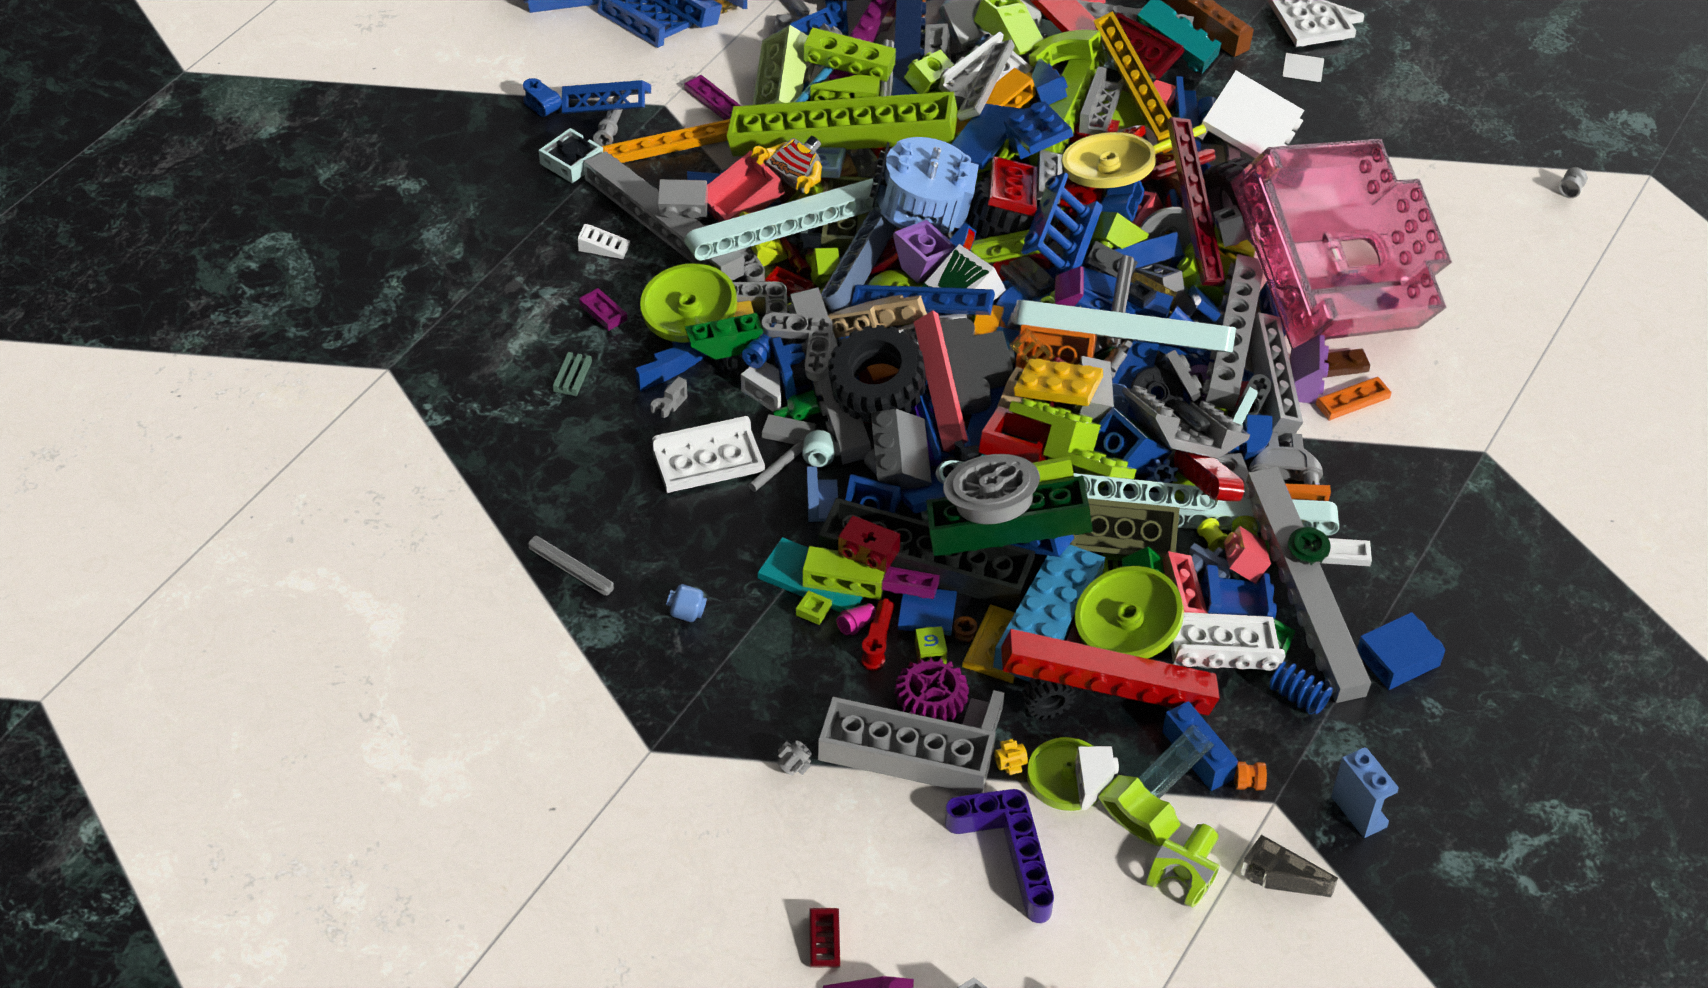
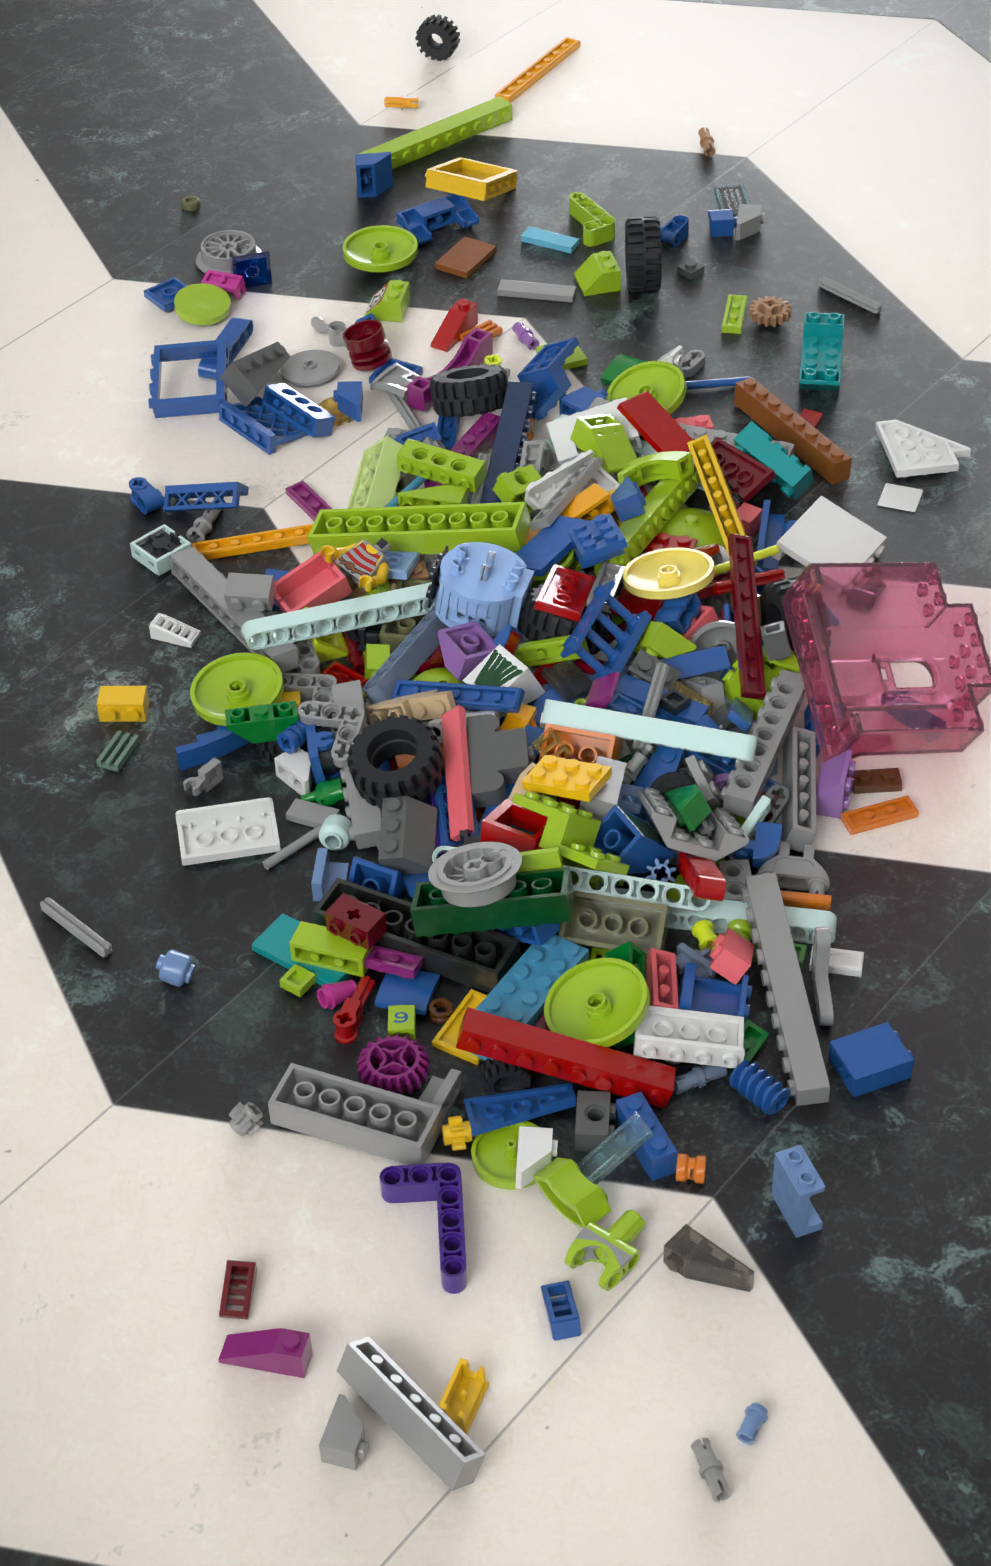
camera: 10 degrees right, 5 degrees down
(567, 323) = (122, 703): none -> yellow brick
(603, 309) = (161, 693): magenta plate -> none
(1060, 726) = (510, 1108): none -> blue wing
(1094, 105) = (672, 521): light grey fence -> none
(1143, 733) = (593, 1119): none -> dark grey brick
(1156, 948) = (561, 1311): none -> blue slope
(1182, 399) = (688, 806): none -> green slope
(1237, 680) = (698, 1077): none -> sand blue pin
(1310, 536) = (794, 941): dark green gear -> none
(1334, 568) = (820, 978): none -> light grey beam

